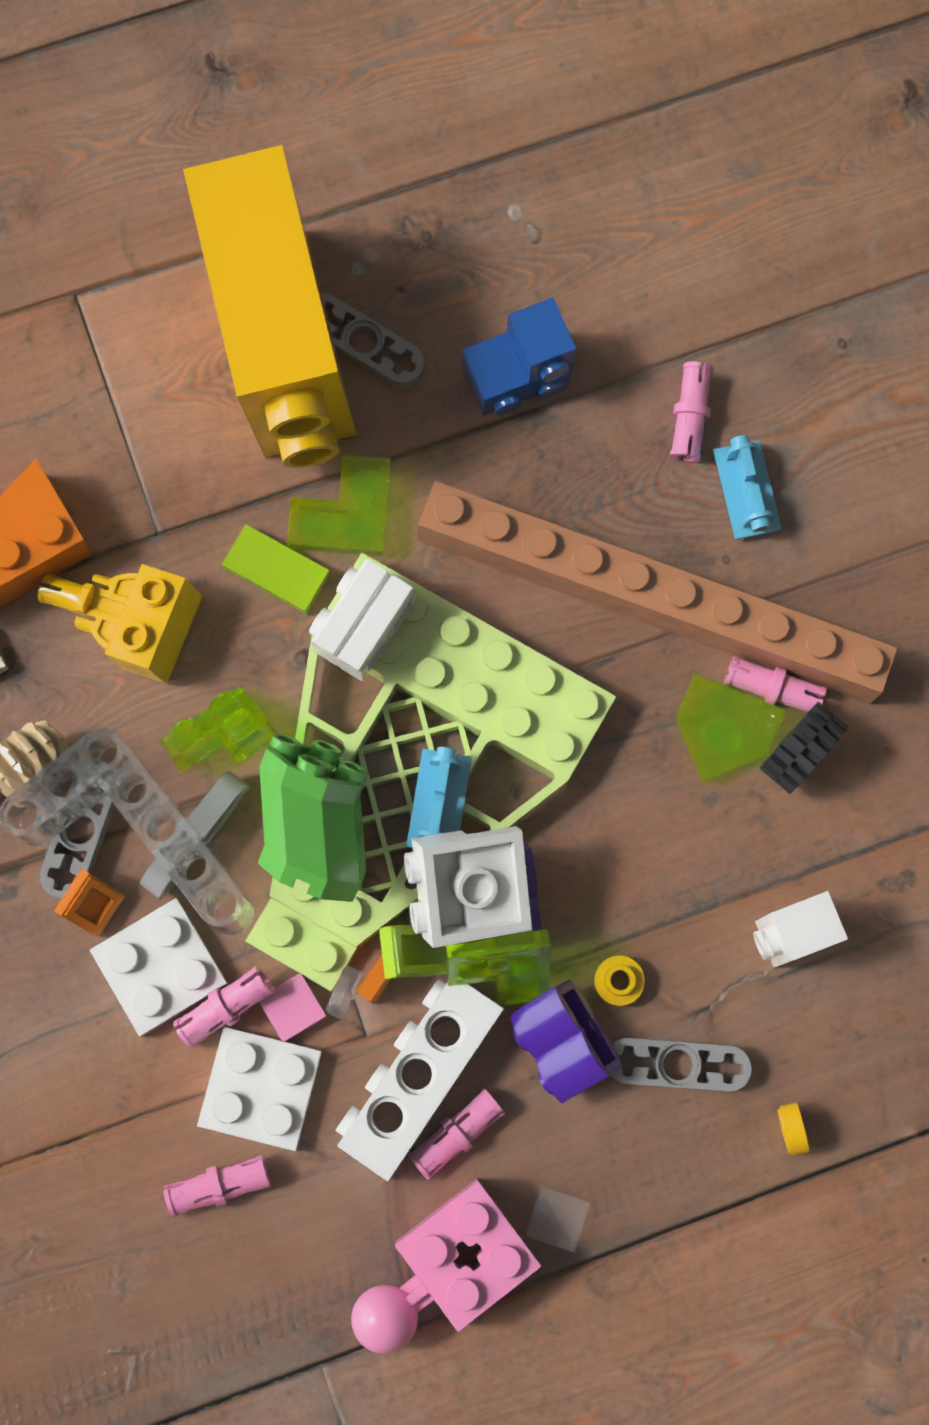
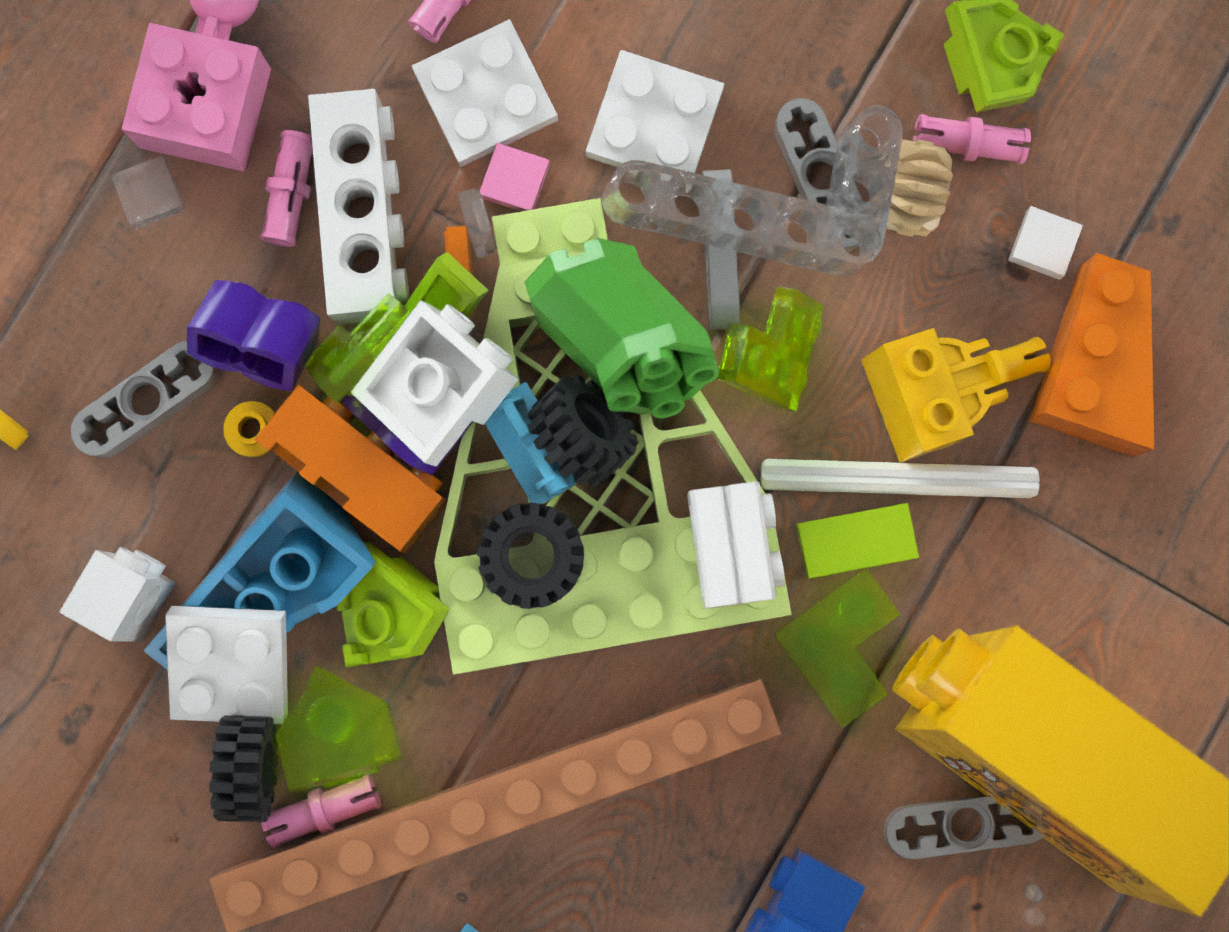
camera: 145 degrees right, 5 degrees up
(89, 903) = (758, 119): orange tile -> none
(212, 586) = (899, 478): none -> white axle
(224, 1007) = (570, 129): bright pink pin -> none
(398, 777) = (581, 431): none -> black tyre
(509, 694) = (495, 561): none -> black tyre
(571, 886) = (353, 468): none -> orange wedge
(625, 779) = (390, 612): none -> lime plate
(682, 865) = (290, 559): none -> dark azure wedge
(762, 829) = (226, 663): none -> white plate

